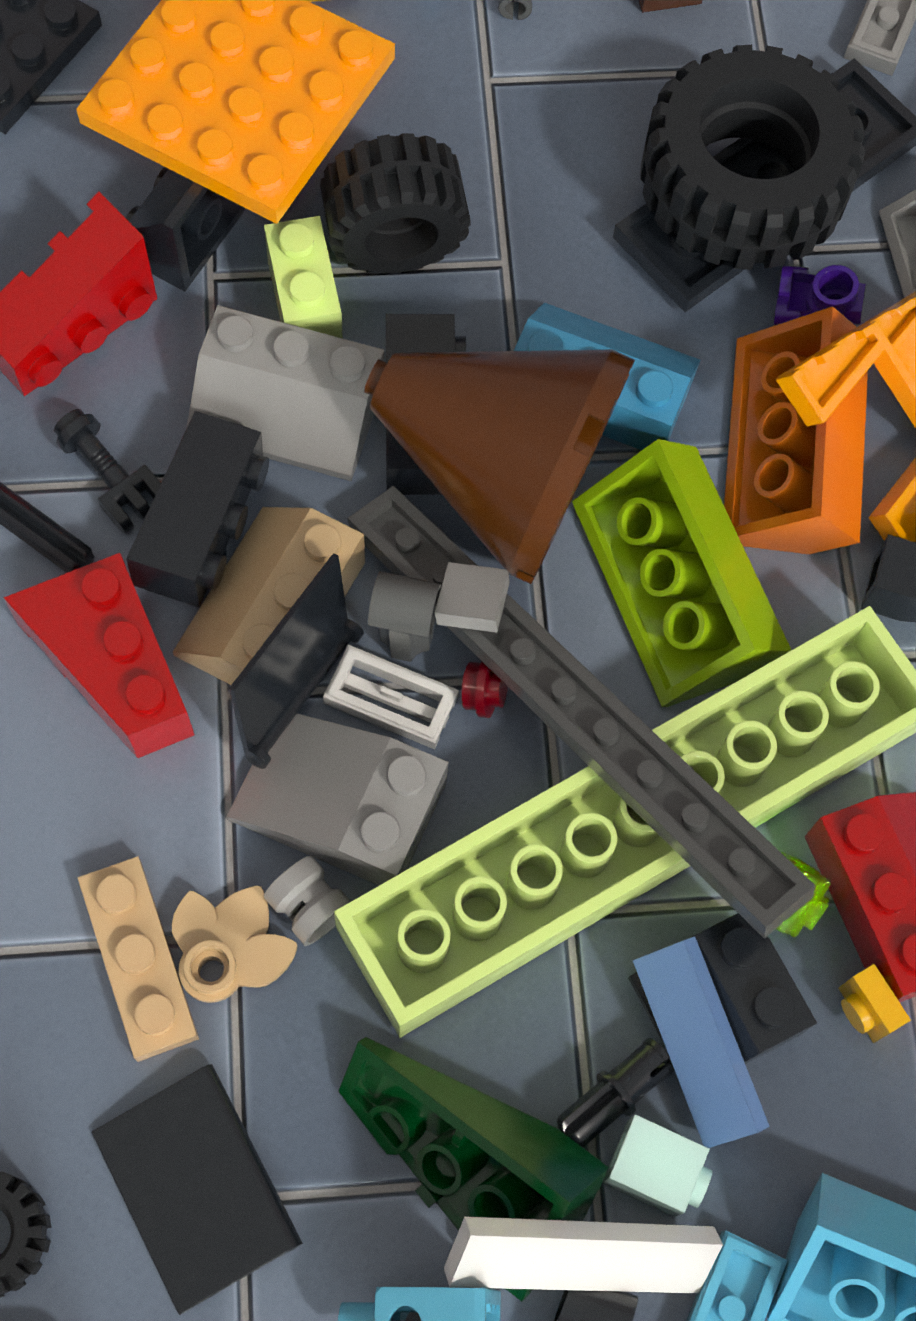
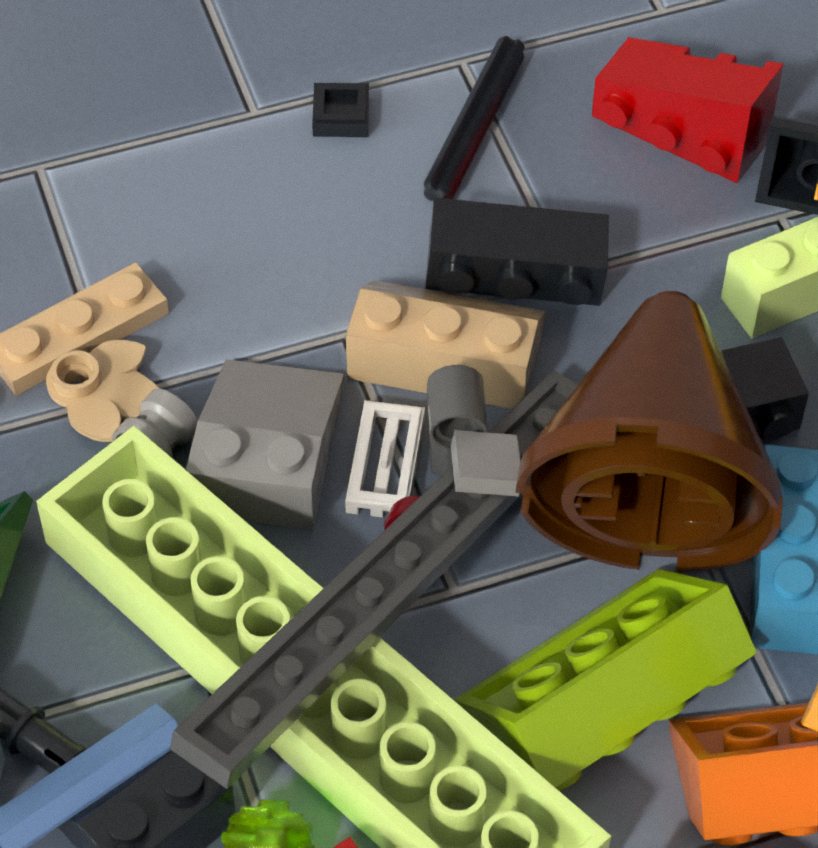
camera: 80 degrees right, 15 degrees down
(78, 433) = (561, 153): black hinge -> none
(107, 649) = (348, 226): red wedge -> none
(290, 386) = (671, 248): light grey slope -> none
(292, 663) = (369, 337): black piece -> none

